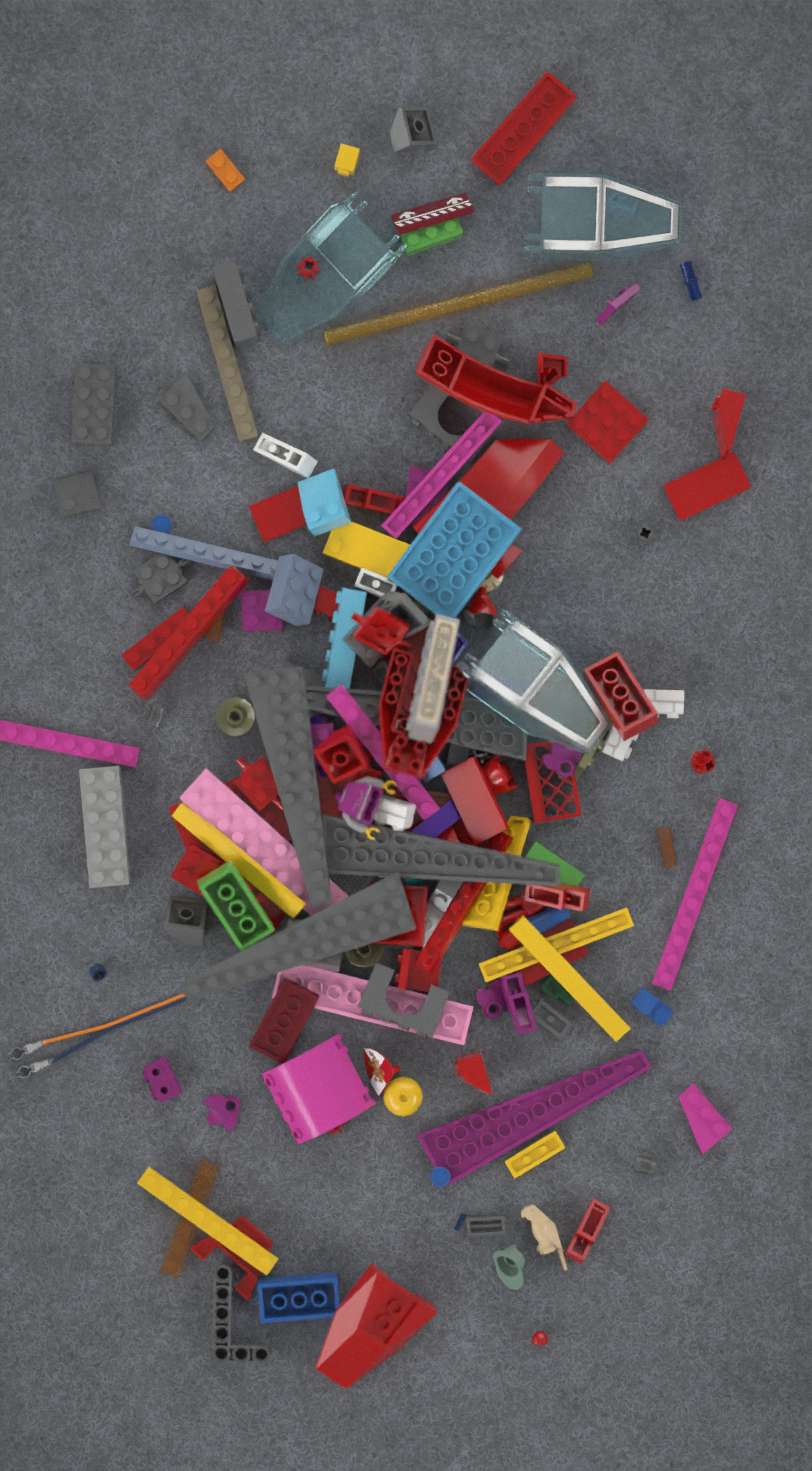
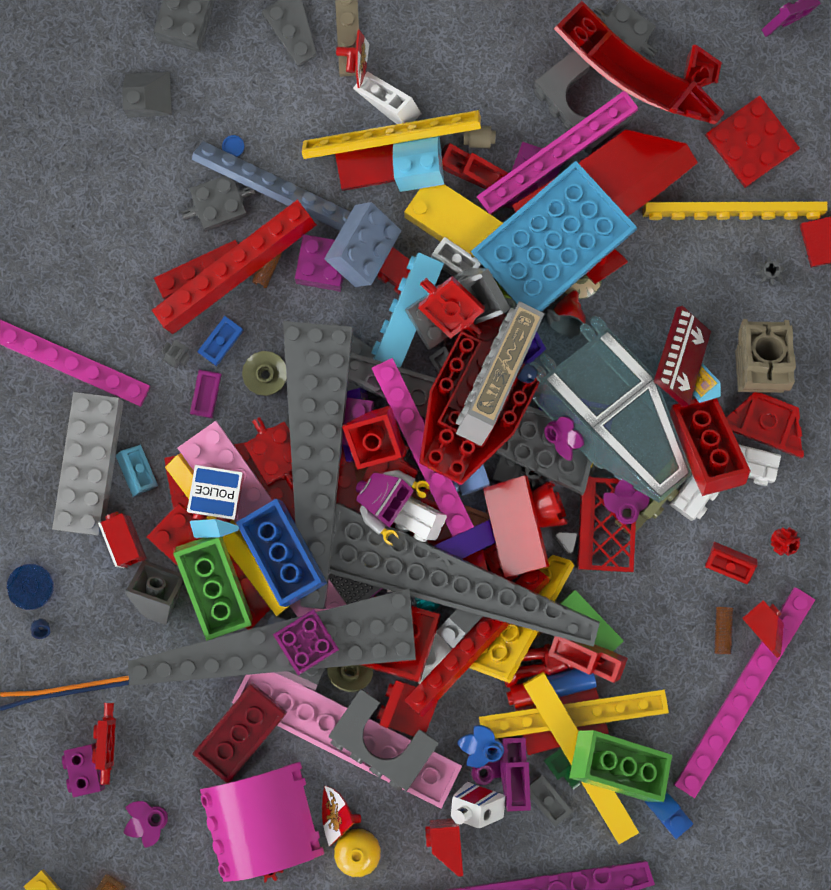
camera: 15 degrees right, 5 degrees down
(80, 939) = (36, 583): none -> clear blue tile
(145, 822) = (136, 470): none -> medium azure slope
(149, 883) = (122, 540): none -> red piece
(176, 1061) = (105, 736): none -> red plate
(188, 744) = (205, 394): none -> magenta tile
(191, 697) = (220, 341): none -> blue plate
(221, 830) = (215, 493): none -> piece
(225, 859) = (212, 528): none -> medium azure slope
(248, 423) = (356, 56): none -> shield
(286, 866) = (281, 553): none -> blue brick
(296, 488) = (391, 134): none -> yellow tile
(323, 934) = (306, 642): none -> magenta tile
(372, 470) = (480, 138): none -> dark tan brick
(456, 674) = (527, 373): none -> dark blue hinge
(483, 988) = (478, 746): none -> blue plate
(492, 1035) = (477, 806): none -> white torso
(498, 717) = (564, 436): none -> magenta plate
(520, 802) = (566, 541): none -> light grey slope
(584, 625) = (682, 356): none -> dark red tile
(595, 489) = (724, 210): none -> yellow plate
(602, 977) = (620, 766): none -> bright green brick
(604, 644) = (706, 386): none -> slope
(652, 597) = (765, 357): none -> dark tan piece
(662, 789) = (731, 563): none -> red slope
(669, 664) = (769, 423): none -> red wing
(701, 836) = (767, 625): none -> red slope

